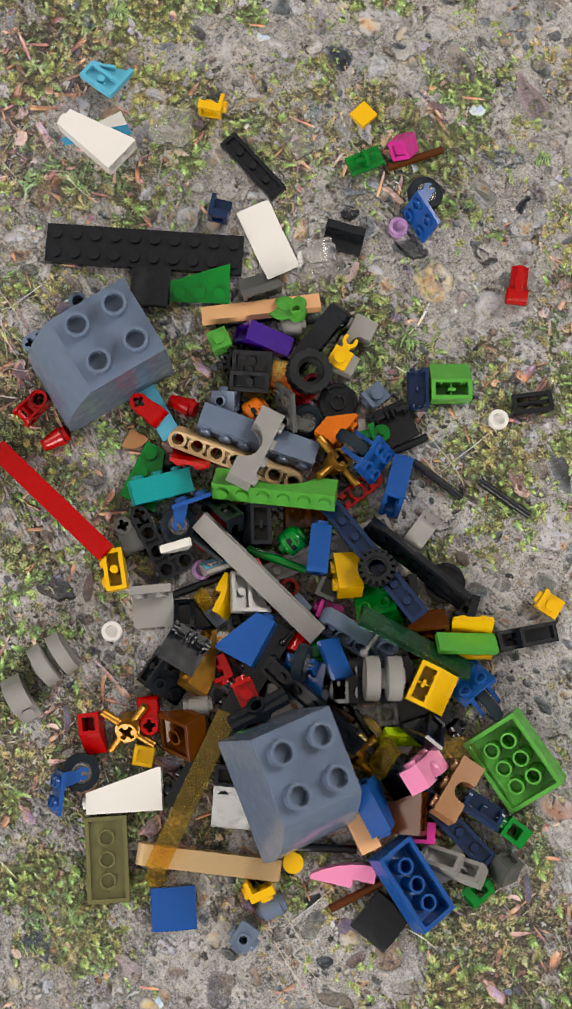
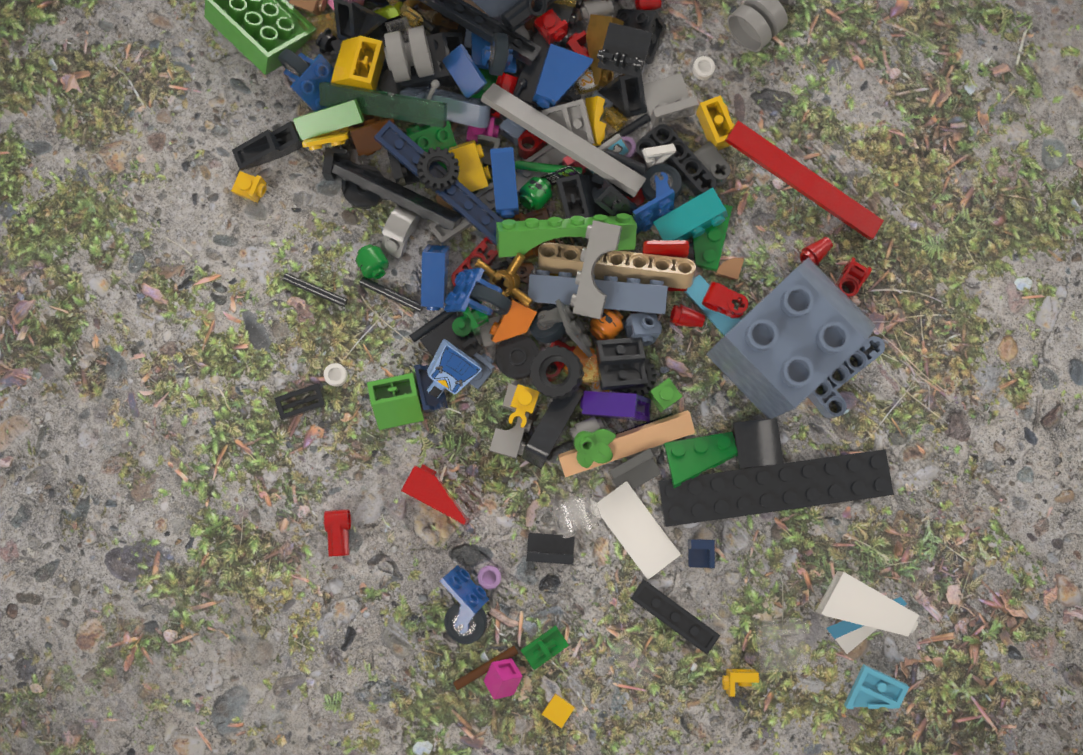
camera: 165 degrees right, 0 degrees up
(397, 395) = (451, 369): none -> torso
(434, 299) = (430, 490): none -> red slope
(449, 509) = (372, 262): none -> green head

